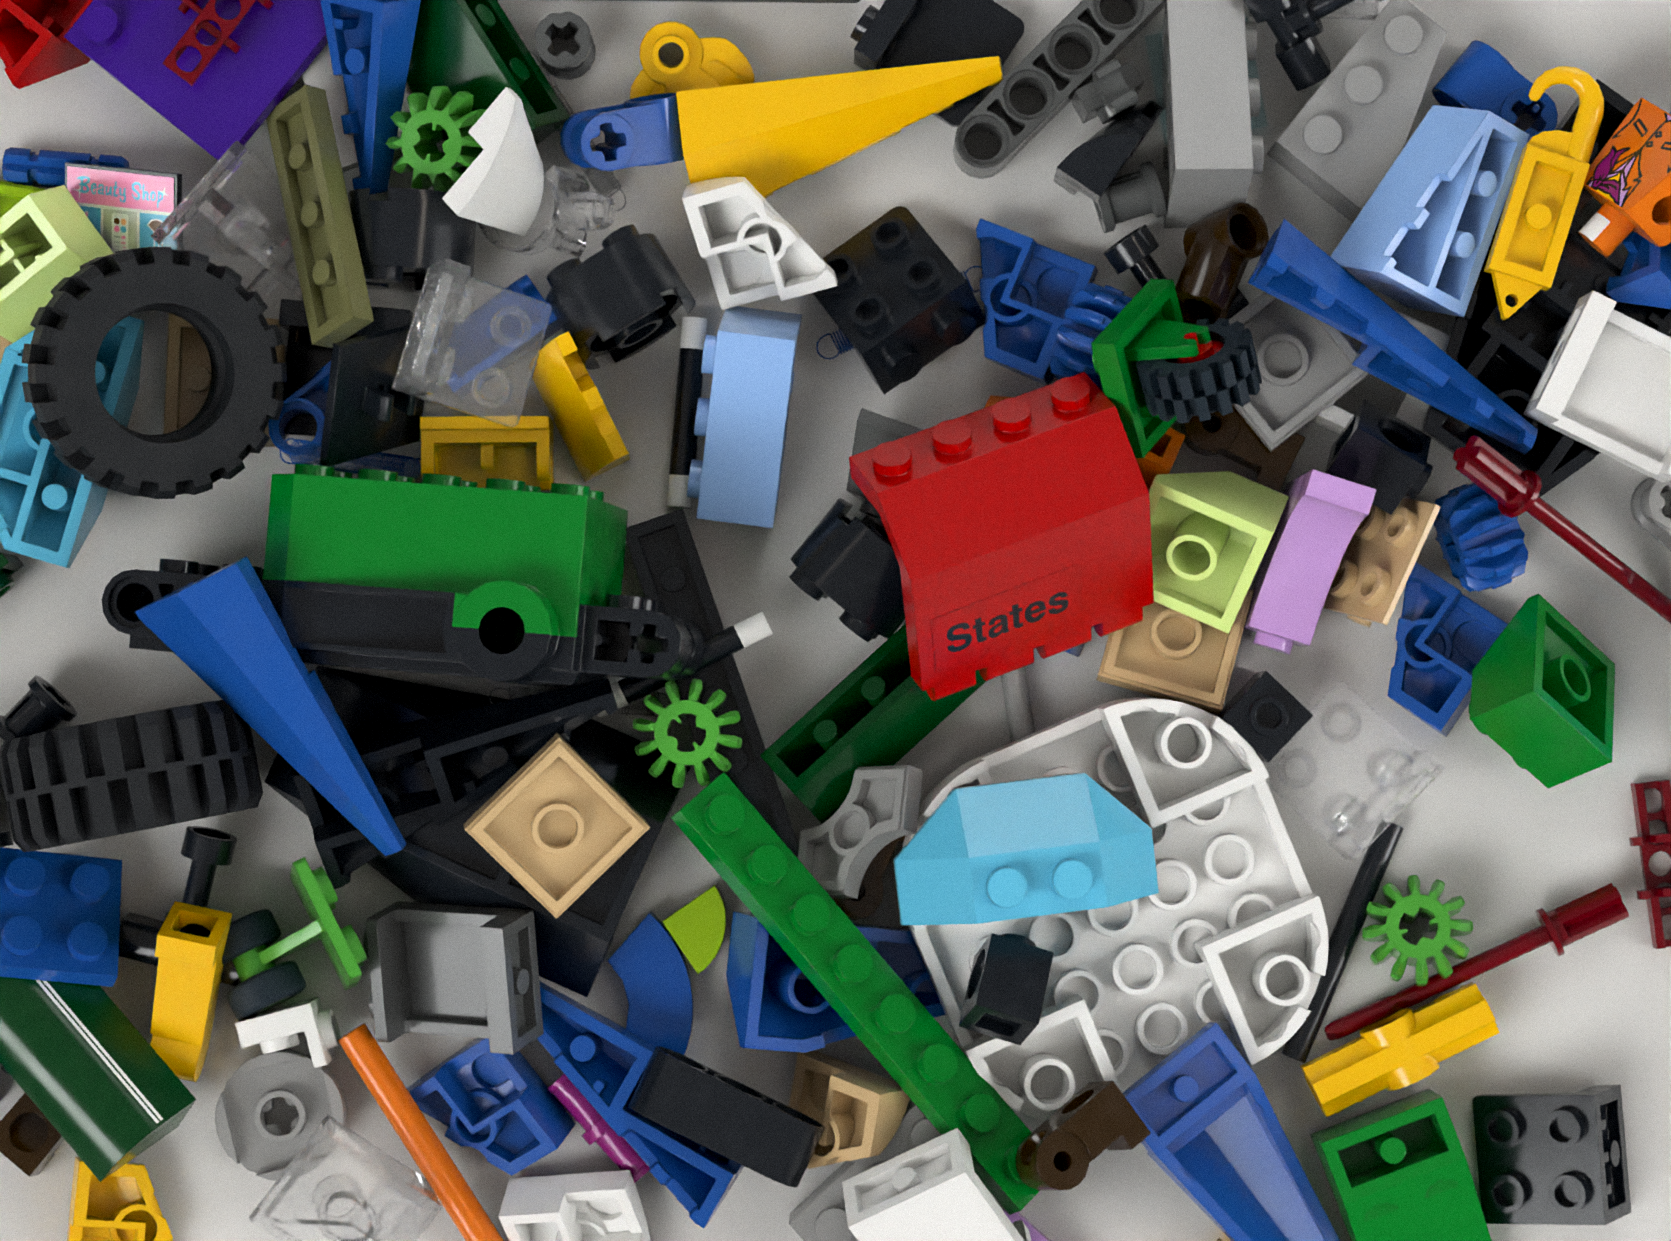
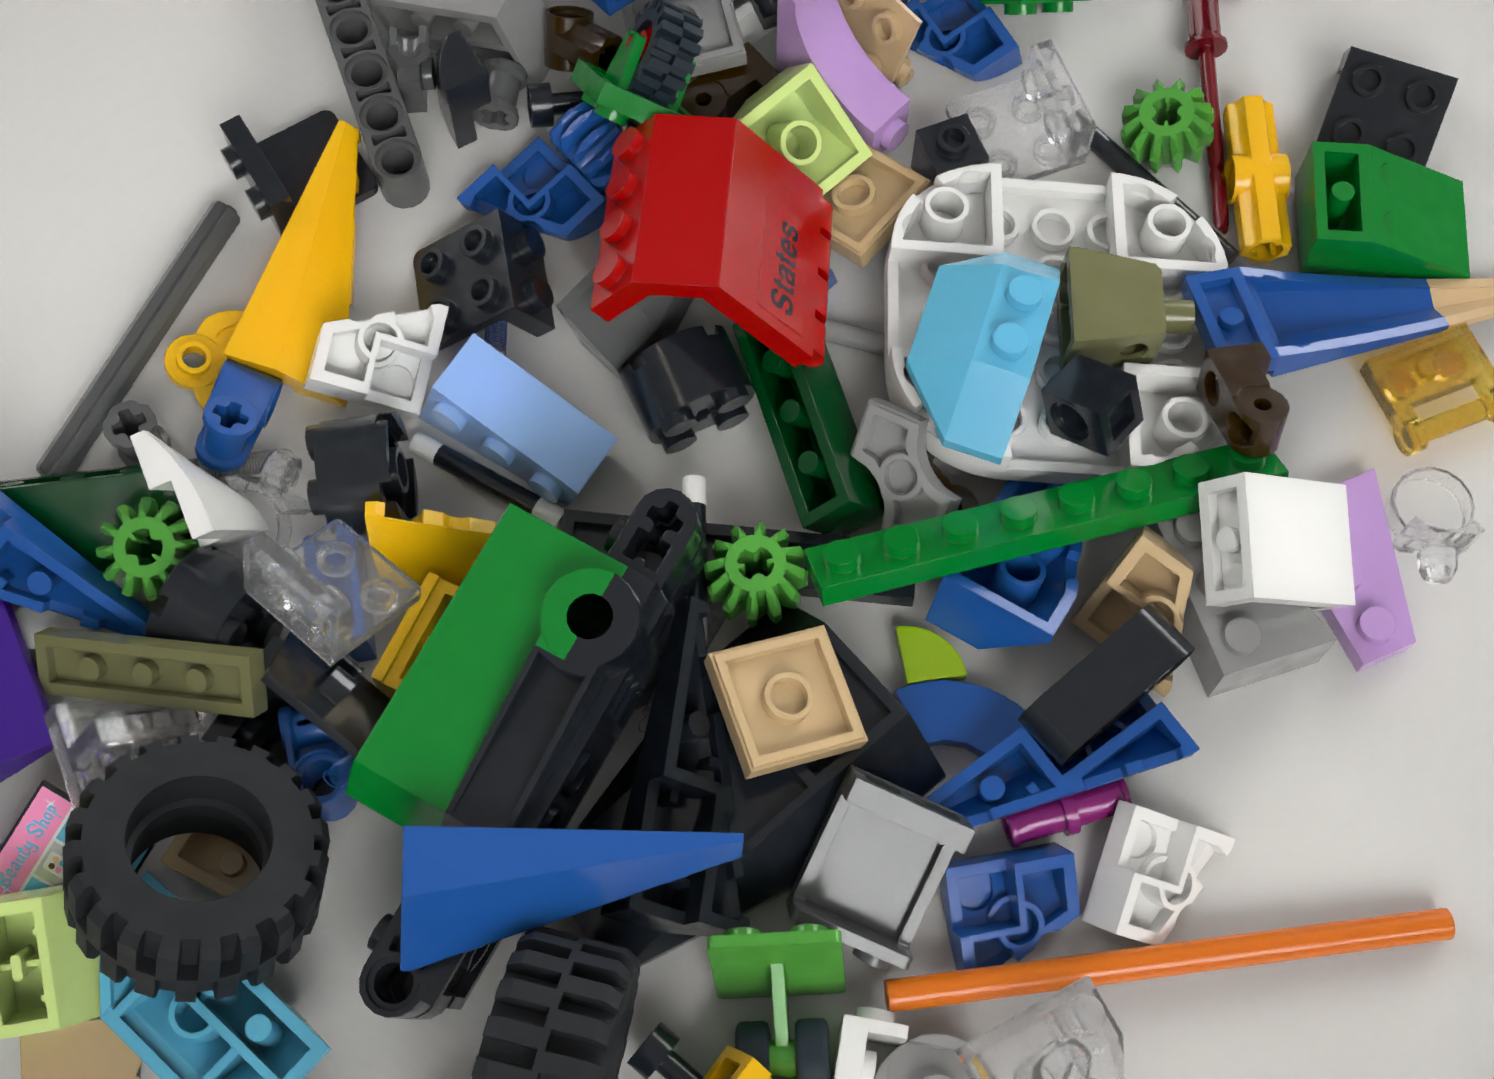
camera: 65 degrees left, 20 degrees down
(1138, 967) = (1115, 309): none -> olive torso

